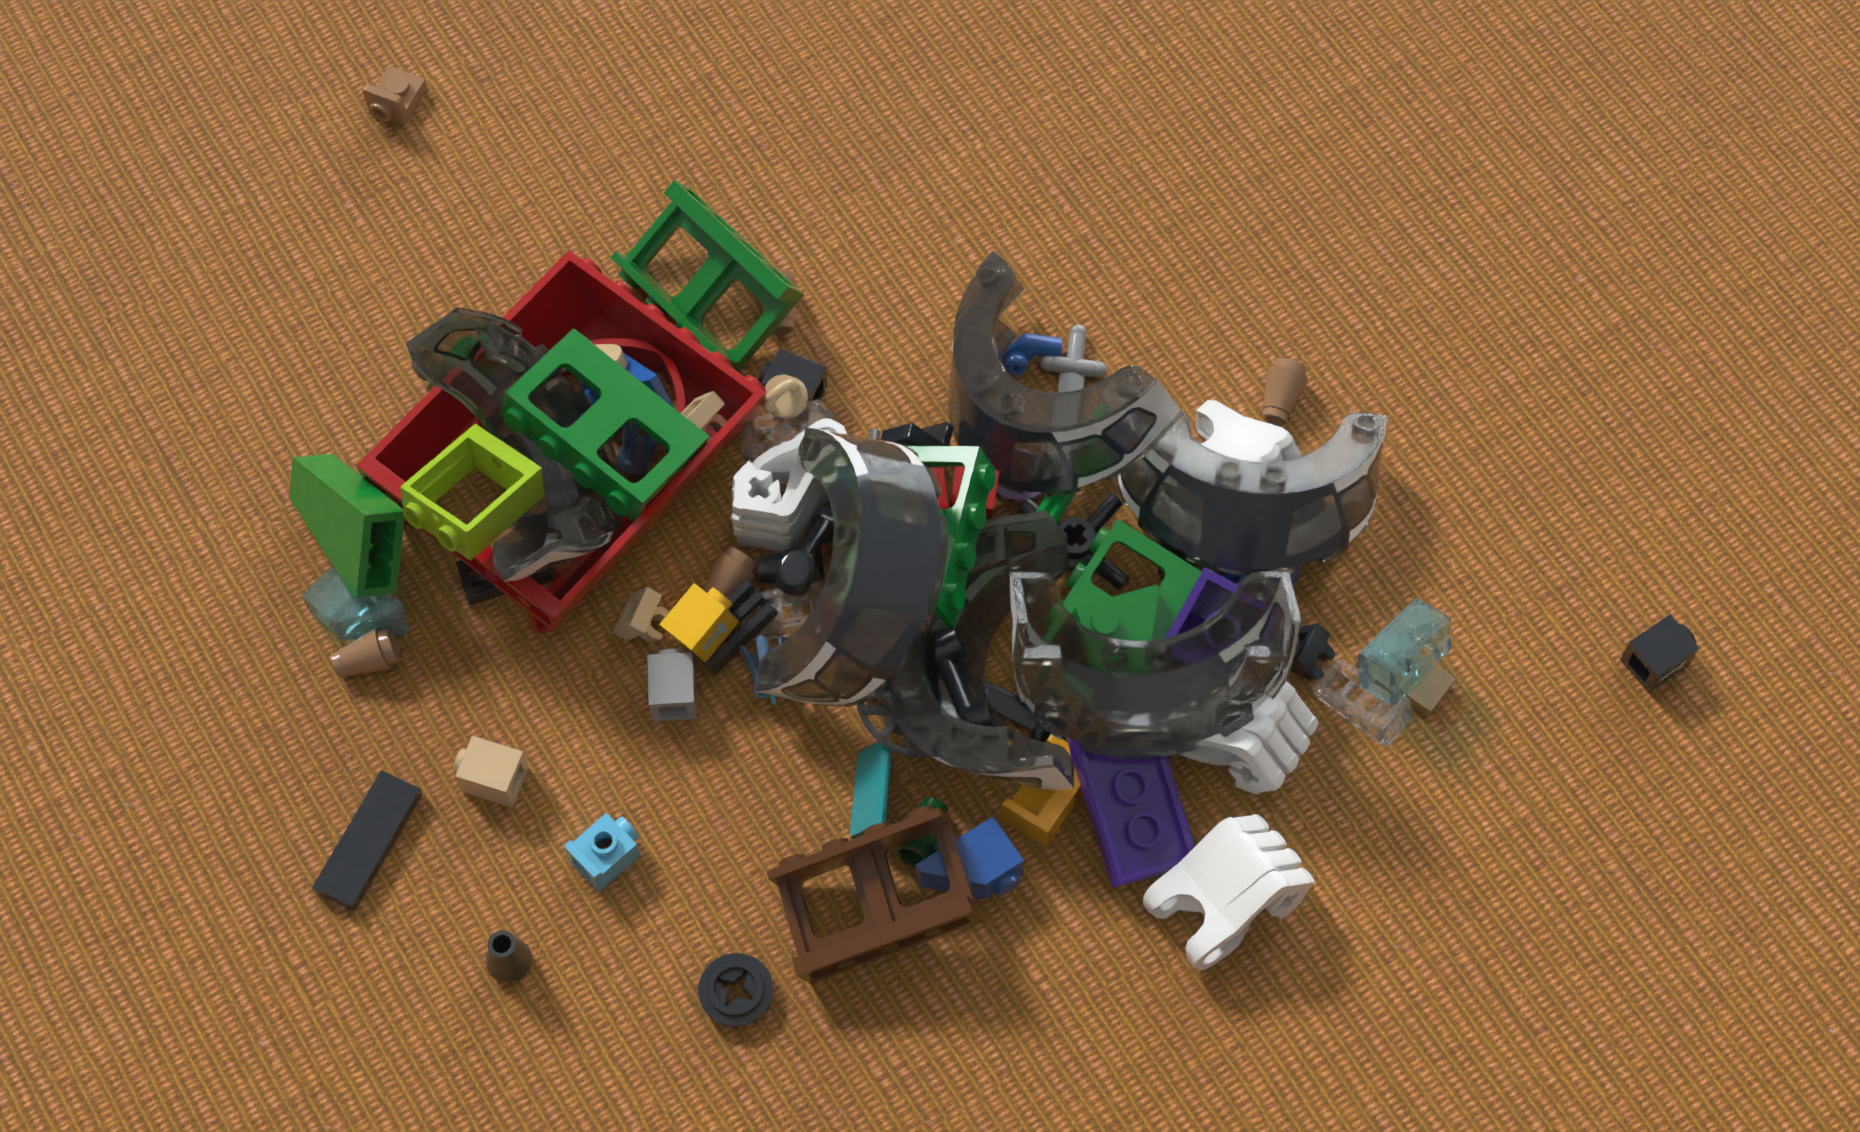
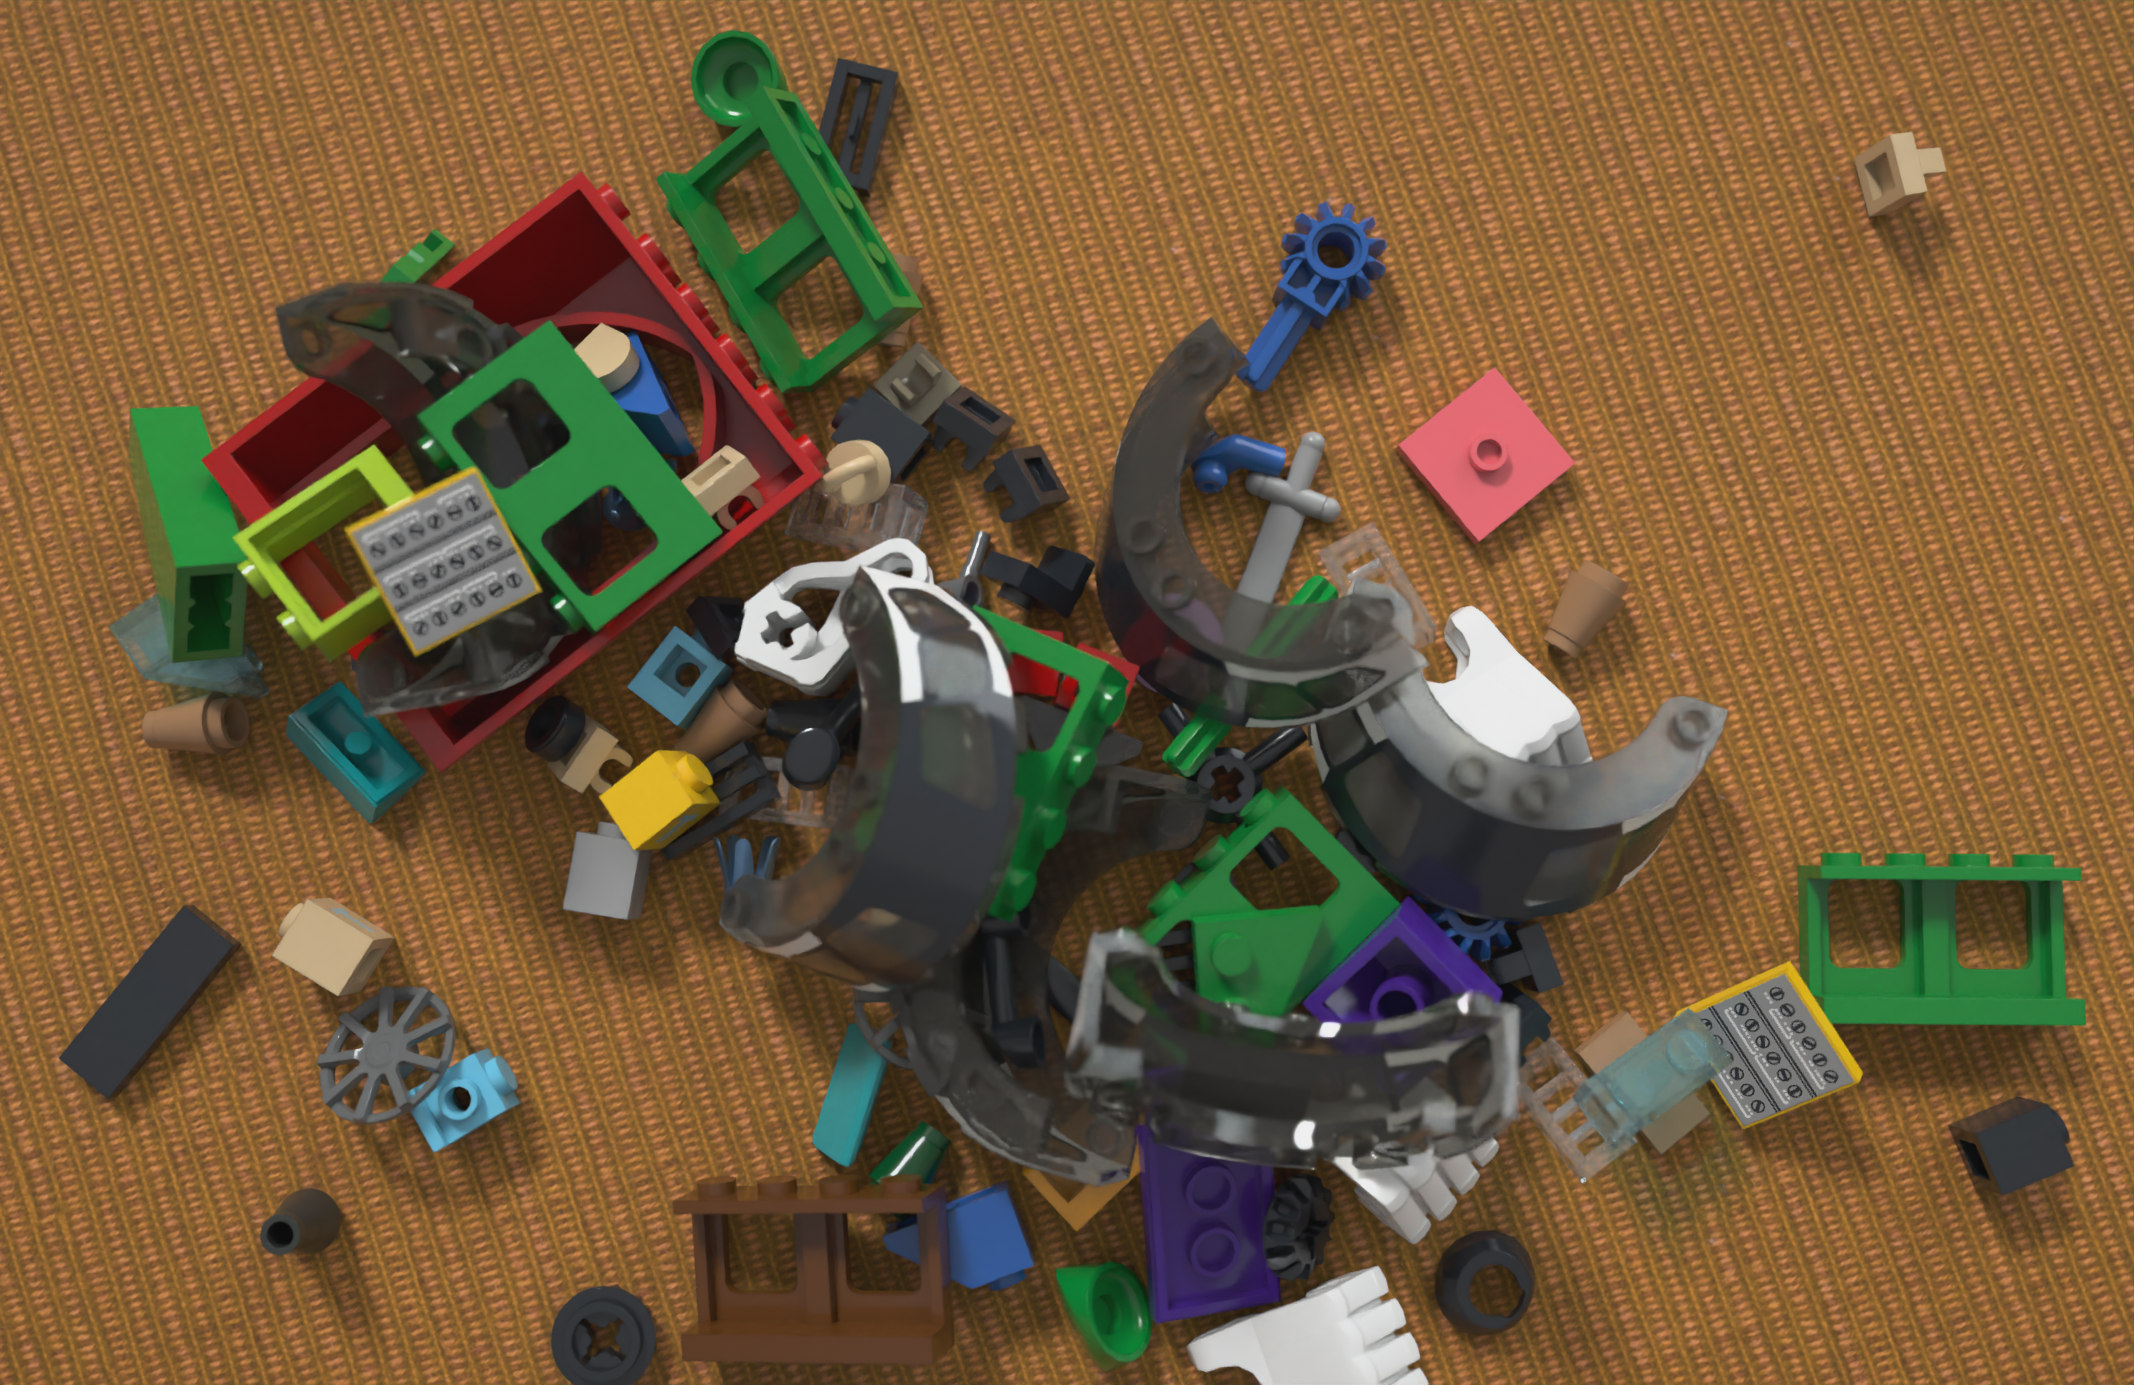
camera: 10 degrees right, 20 degrees up
(476, 654) = (353, 751): none -> teal slope
(540, 470) = (443, 560): none -> light grey tile
(545, 829) = (386, 1054): none -> dark grey wheel
(614, 603) = (554, 728): none -> black tile
(643, 190) = (730, 72): none -> green piece
(692, 538) = (660, 677): none -> medium azure brick
(712, 510) = (718, 622): none -> black tile
(732, 177) = (868, 76): none -> black tile
(812, 345) = (917, 385): none -> dark tan tile
(855, 363) = (974, 423): none -> black tile
(899, 390) = (1029, 481): none -> black tile
(1053, 239) = (1311, 288): none -> blue gear
(1081, 894) = (1106, 1311): none -> green piece
(1192, 317) = (1484, 456): none -> coral plate
(1196, 818) = (1301, 1211): none -> black gear
(1310, 603) = (1526, 958): none -> black tile
(1322, 839) = (1459, 1266): none -> black piece
(1406, 99) = (1896, 172): none -> tan tile
(1484, 620) = (1778, 1046): none -> tile
(1576, 569) = (1928, 979): none -> green window

